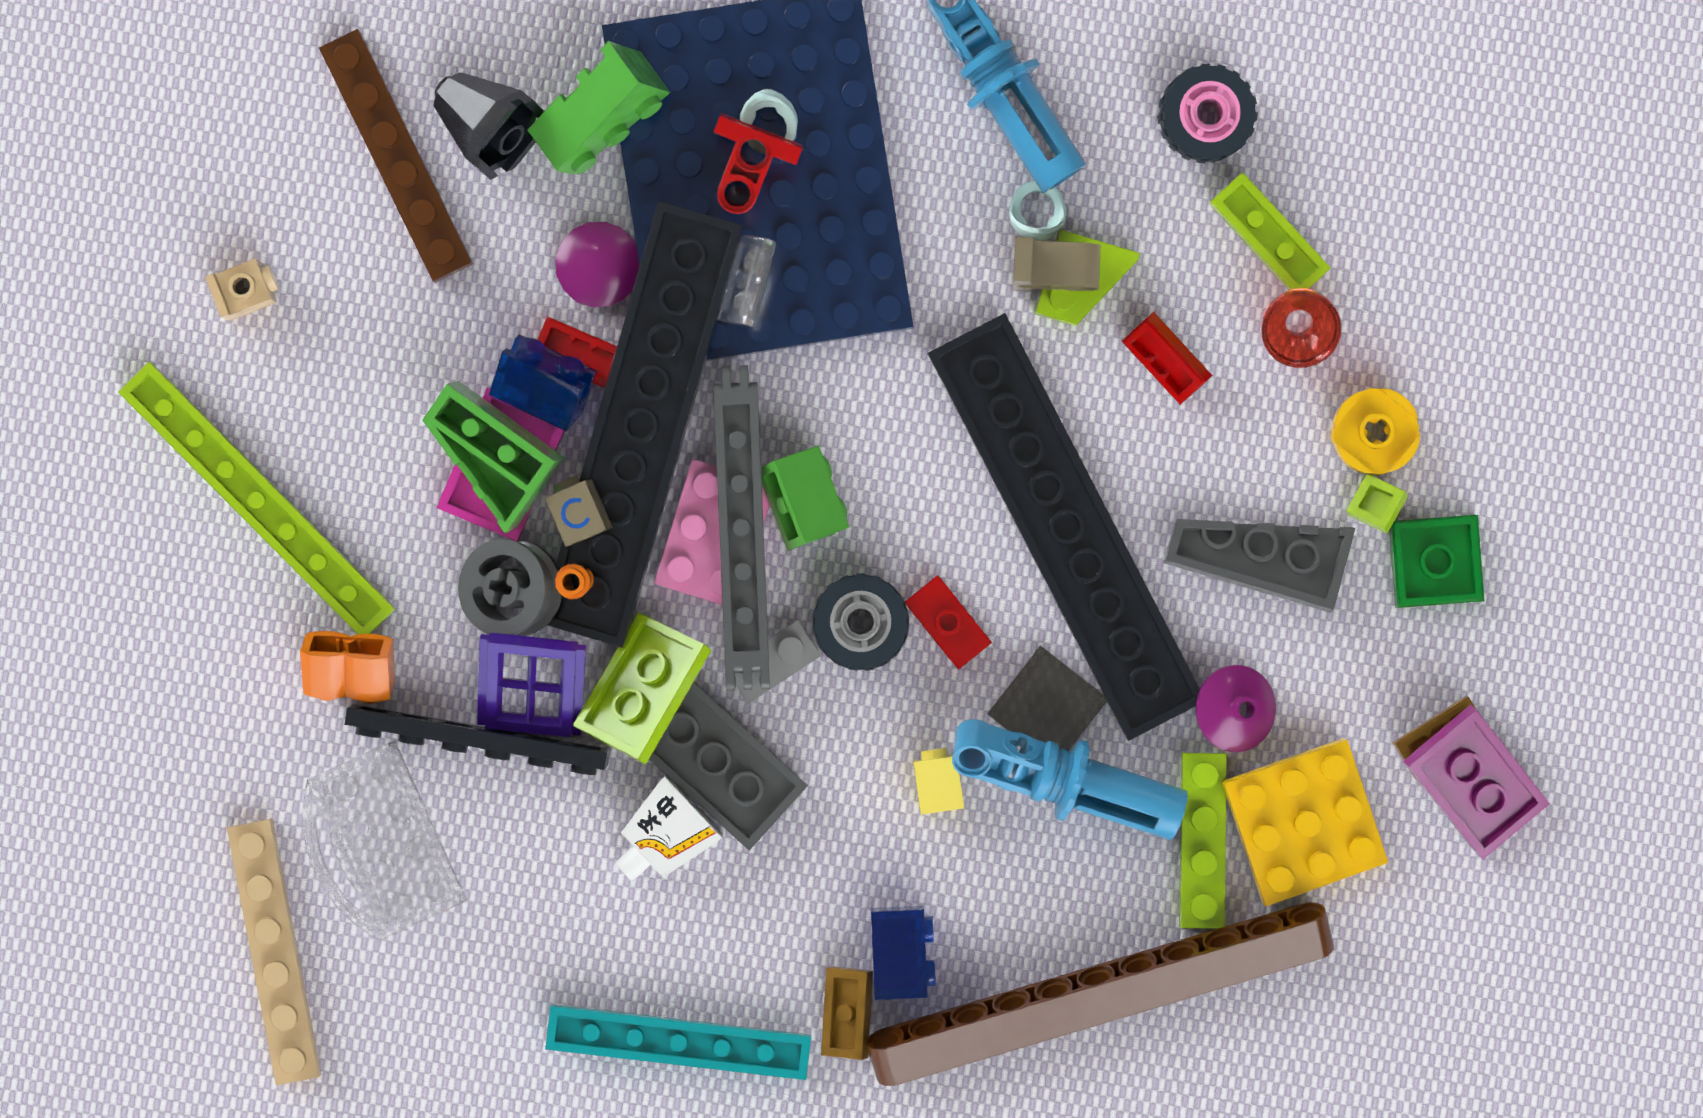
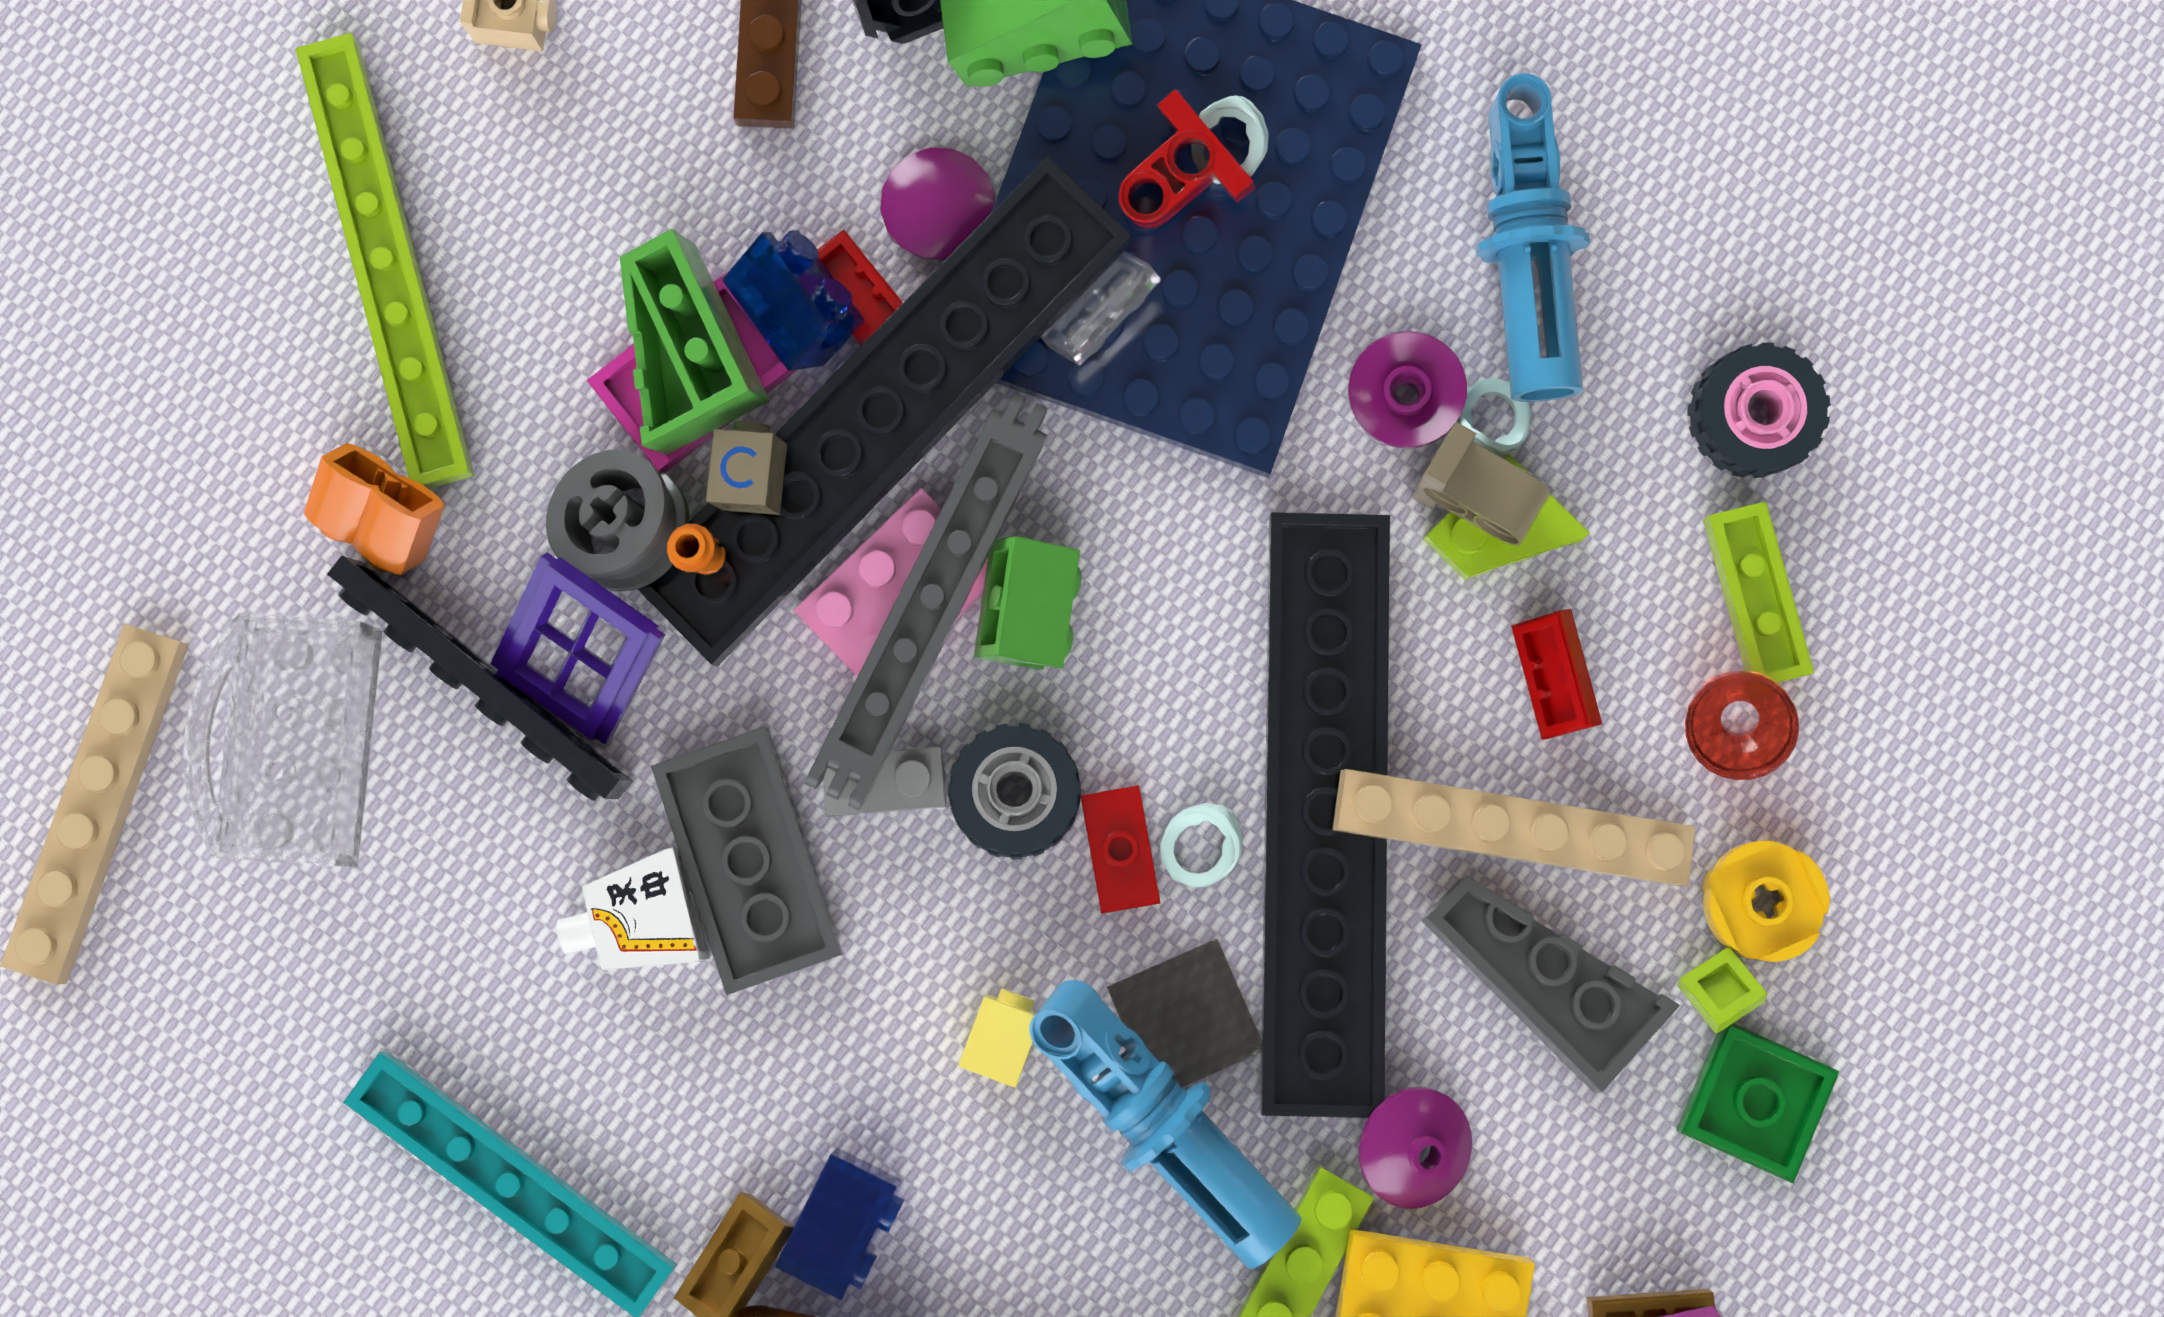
camera: 25 degrees right, 5 degrees down
(642, 688) = (706, 726): lime plate -> none
(966, 201) = (1410, 361): none -> magenta dish
(1018, 581) = (1231, 848): none -> light aqua piece
(1191, 472) = (1513, 828): none -> tan plate

